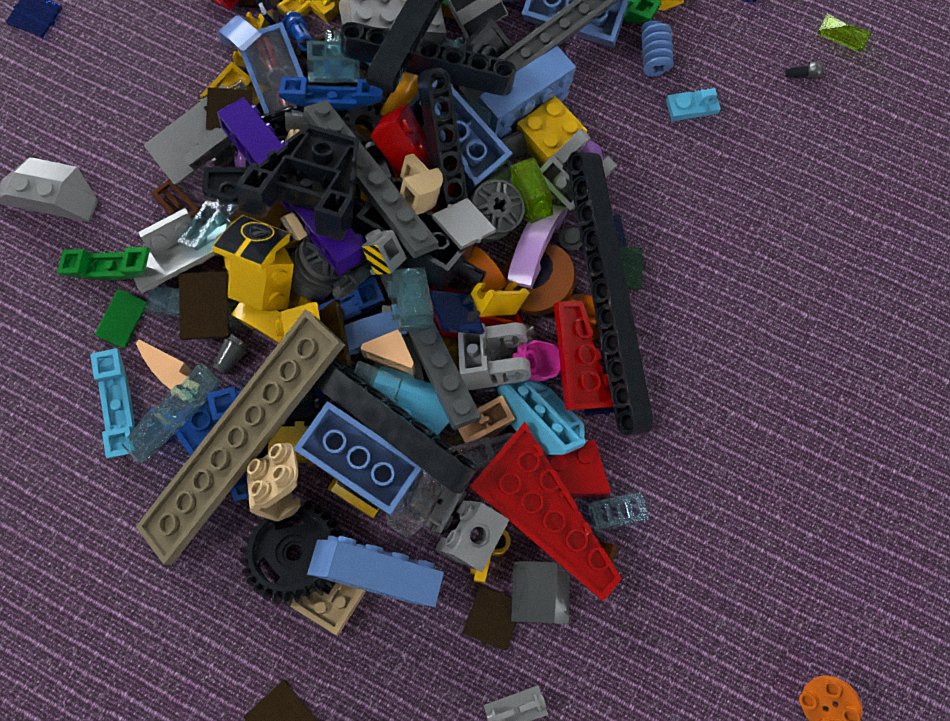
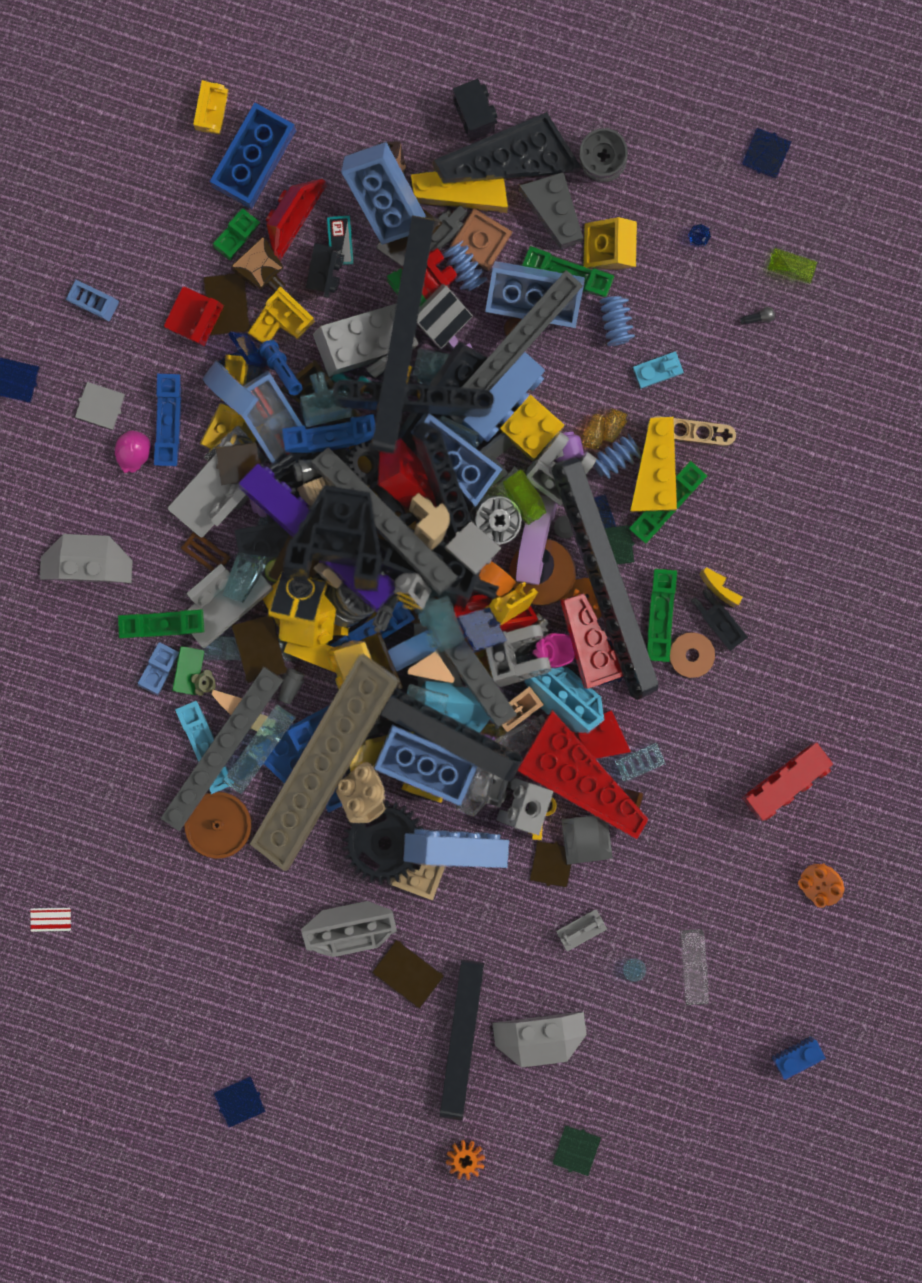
camera: 10 degrees left, 15 degrees up
(89, 314) = (158, 669): none -> medium blue slope
(105, 498) = (219, 825): none -> dark orange piece
(110, 50) = (100, 405): none -> light grey piece
(127, 92) = (132, 450): none -> dark pink hair
(127, 329) = (209, 682): none -> olive plate
(128, 408) = (222, 748): none -> dark grey plate
(175, 68) = (168, 419): none -> blue slope
(223, 654) = (349, 929): none -> light grey wedge
(618, 148) = (593, 434): none -> clear yellow cone
(637, 174) = (616, 456): none -> medium blue piece
(640, 145) = (614, 424): none -> clear yellow cone
(666, 346) = (661, 614): none -> green slope
(682, 194) = (657, 475): none -> yellow wedge
(690, 230) = (686, 483): none -> green slope
(705, 387) = (705, 651): none -> nougat tile
(721, 171) = (692, 426): none -> tan beam
(733, 366) = (720, 622): none -> black hinge
(737, 326) = (715, 583): none -> yellow slope
(796, 566) = (788, 781): none -> red wedge

